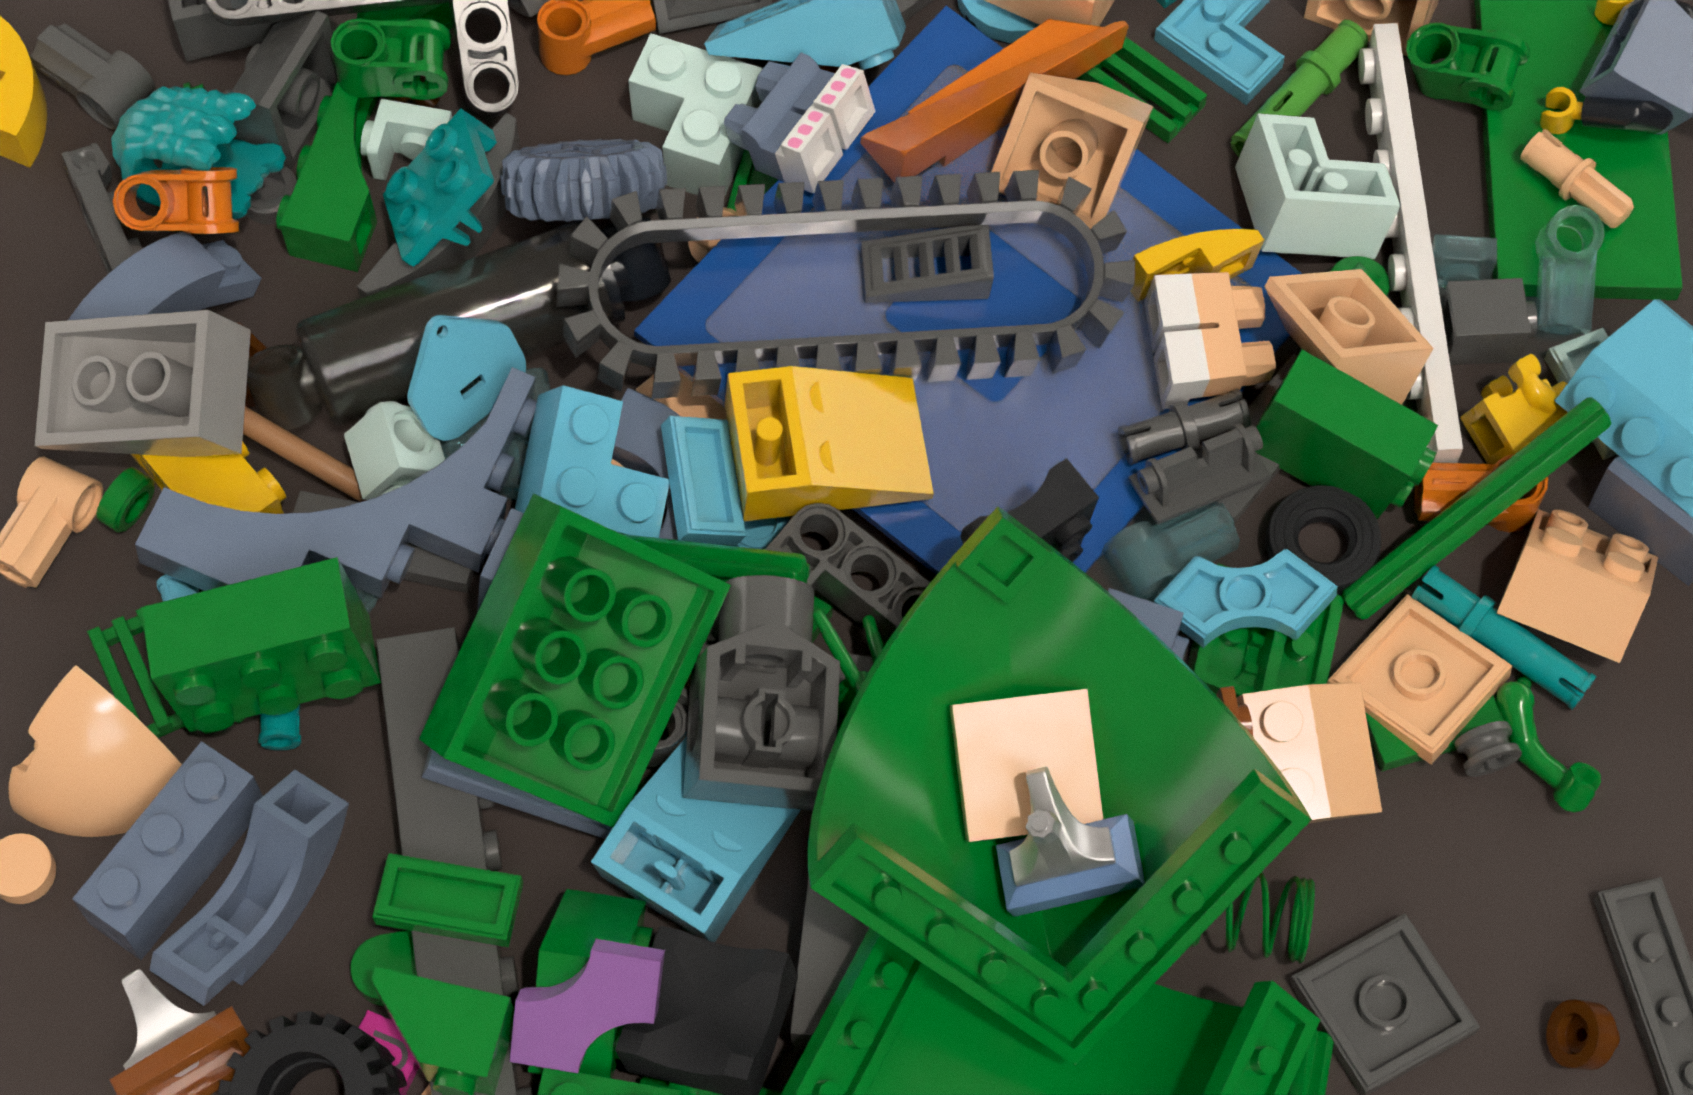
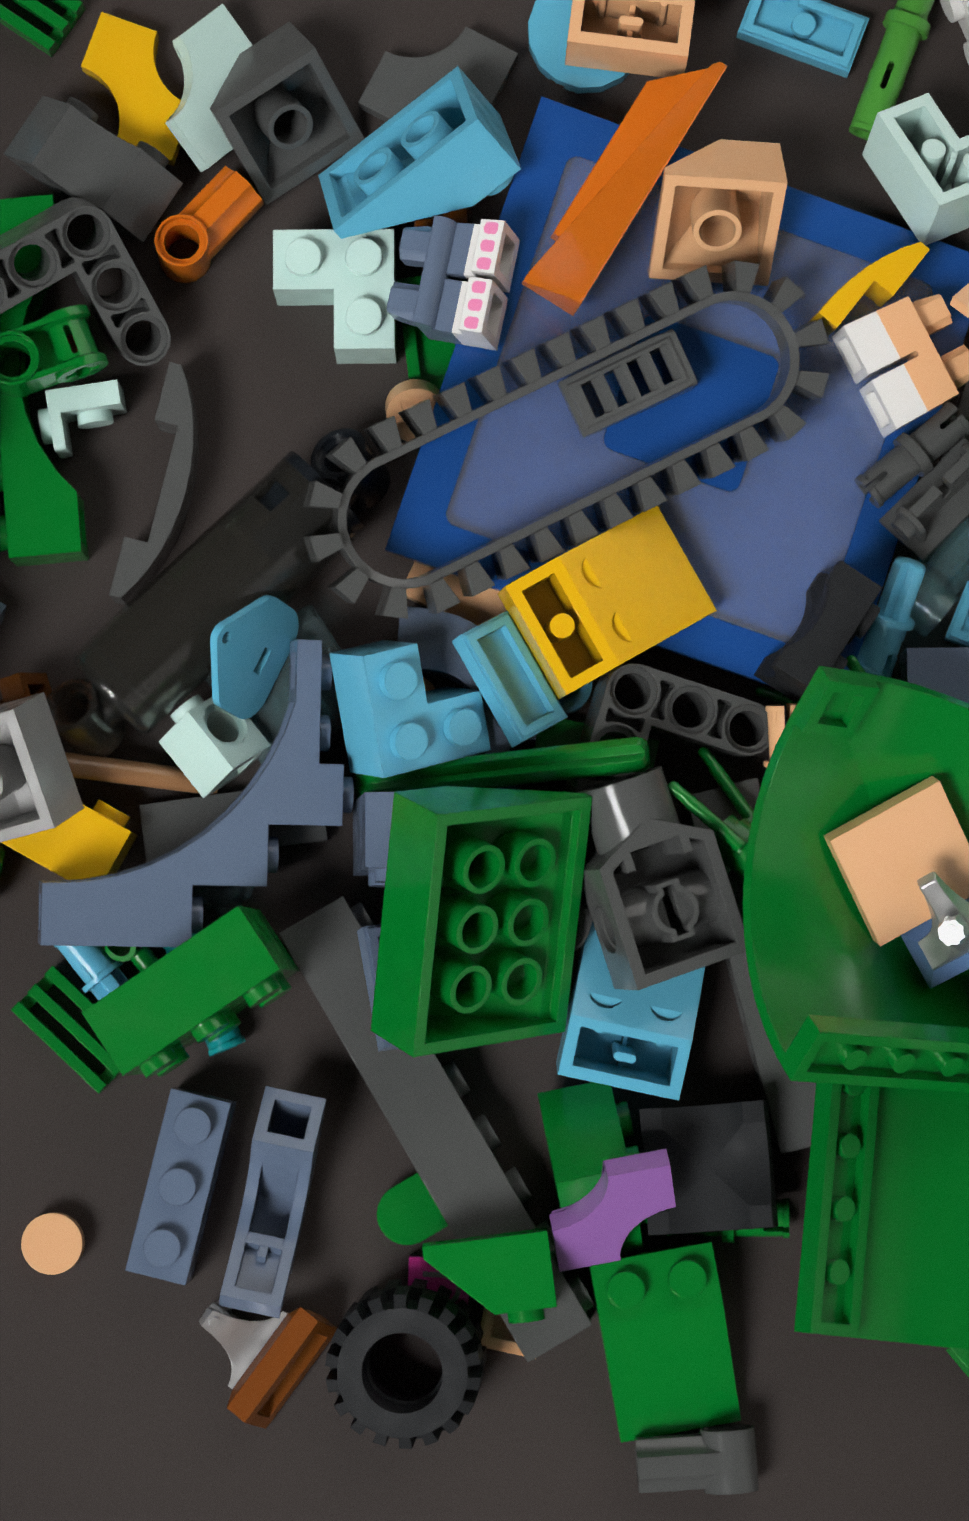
camera: 20 degrees left, 20 degrees up
(89, 764) = (82, 1137): light nougat brick -> none
(440, 187) = (147, 471): teal piece -> none
(448, 900) = (447, 1150): green tile -> none
(580, 178) = (274, 410): sand blue gear -> none
(1117, 544) = (889, 629): none -> medium azure axle
(1152, 82) = (759, 79): green tile -> none

